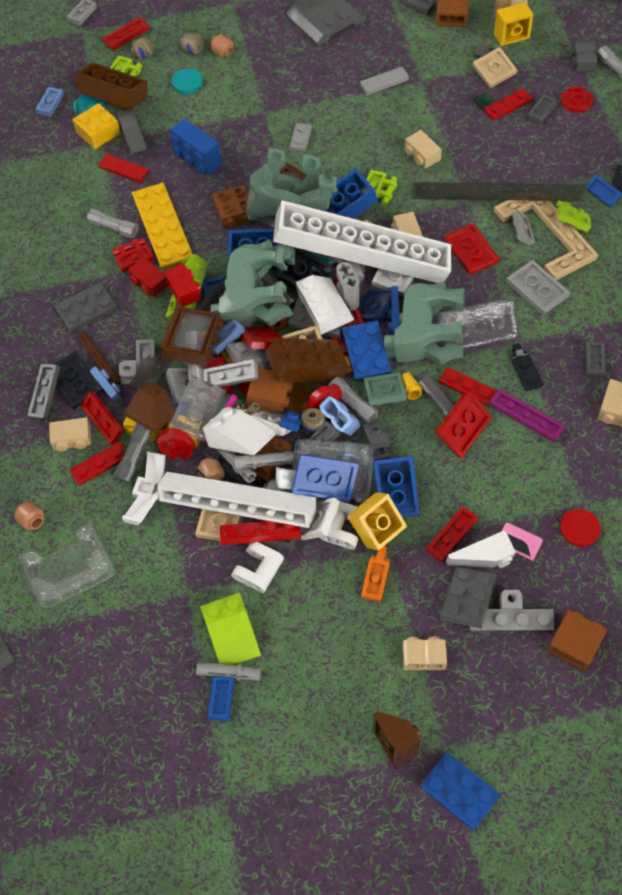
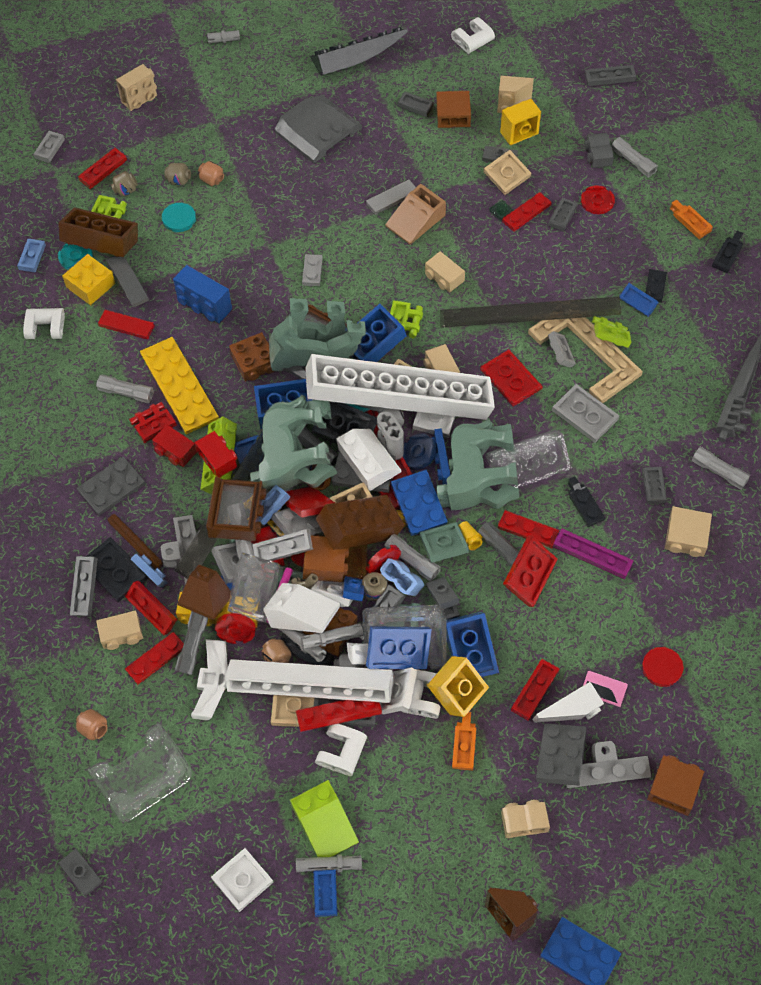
camera: 10 degrees left, 0 degrees up
(50, 154) = (51, 316): none -> white connector
(144, 675) = (242, 879): none -> white plate
(404, 96) = (417, 214): none -> medium nougat slope

